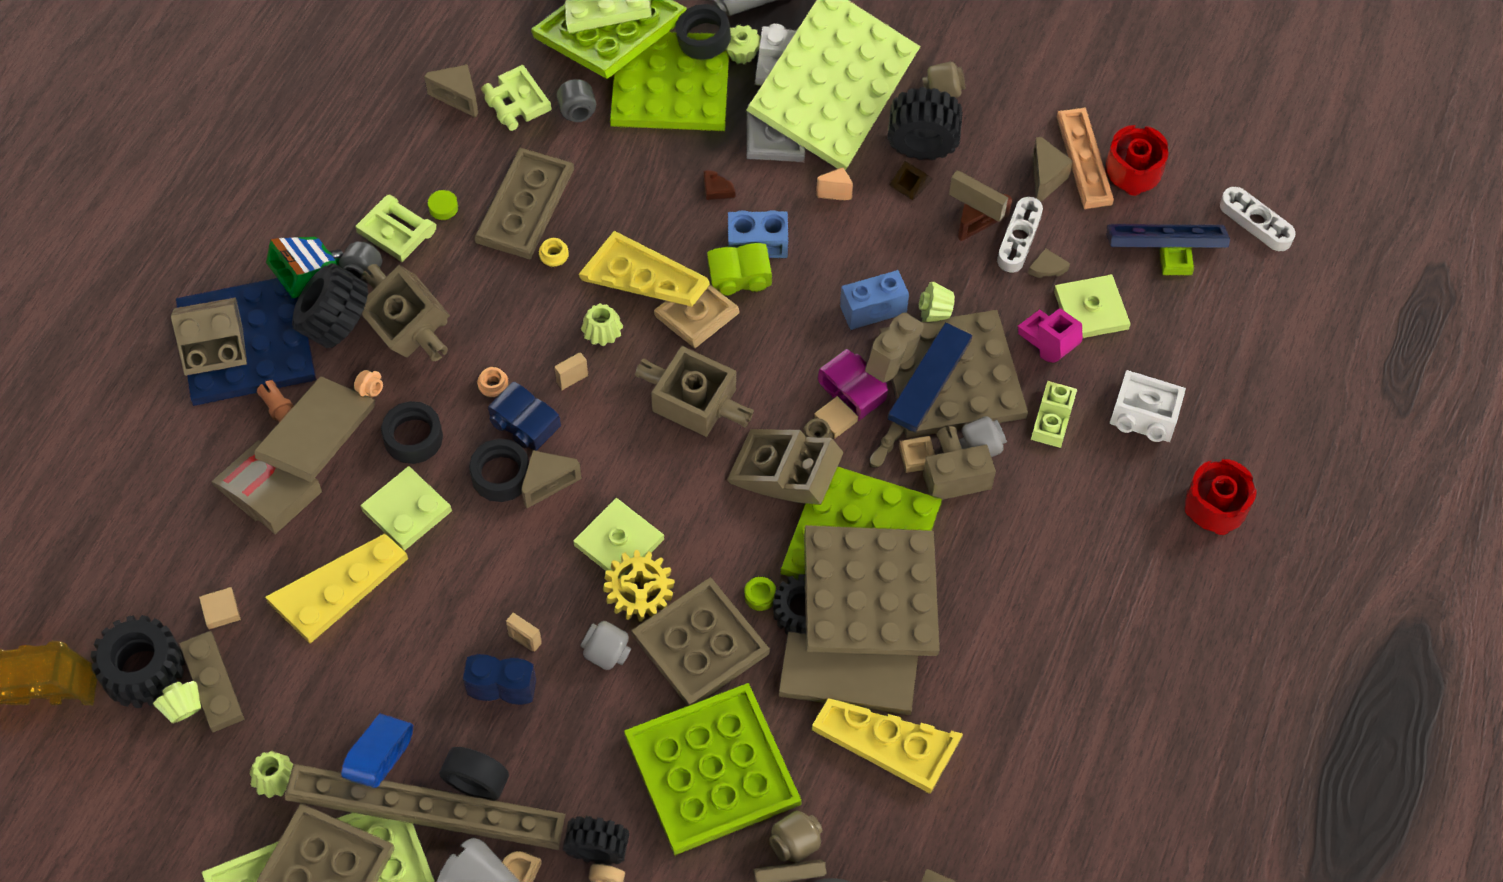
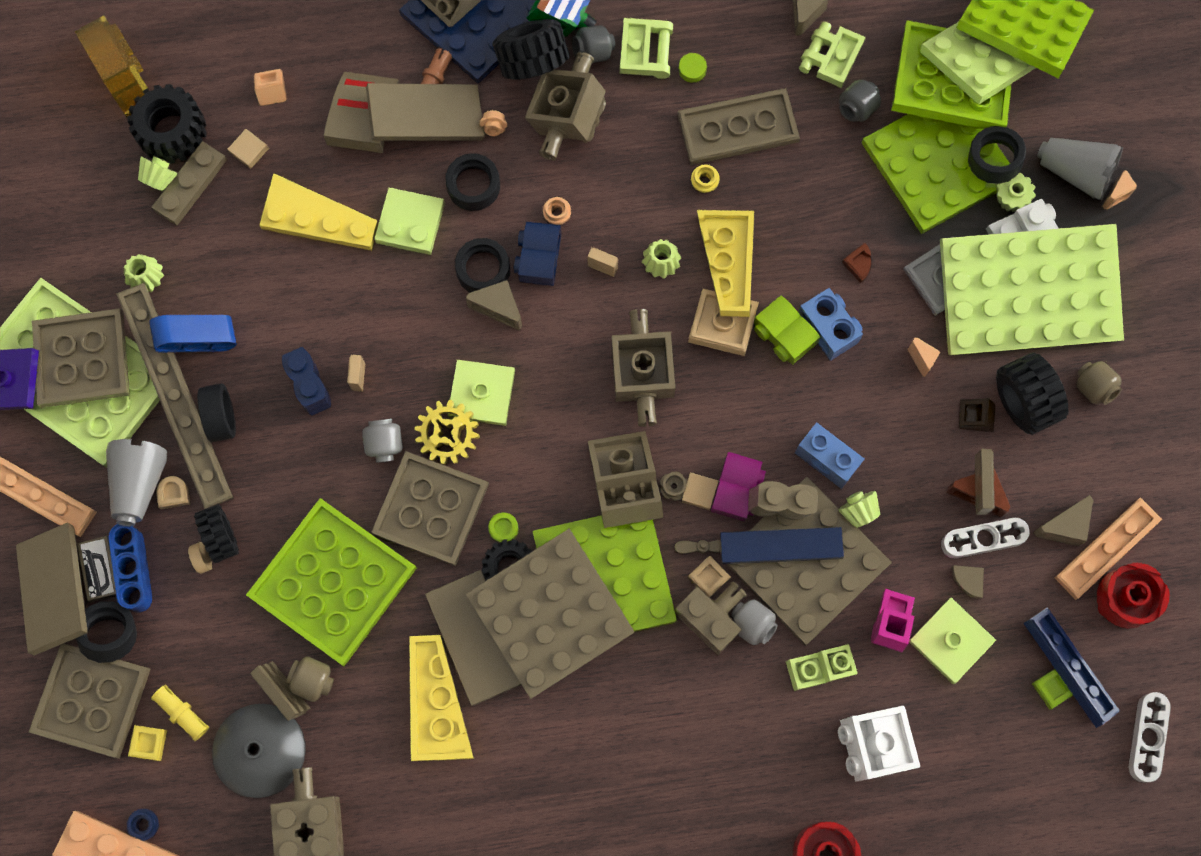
camera: 60 degrees right, 15 degrees up
(172, 554) = (270, 87): none -> light nougat slope

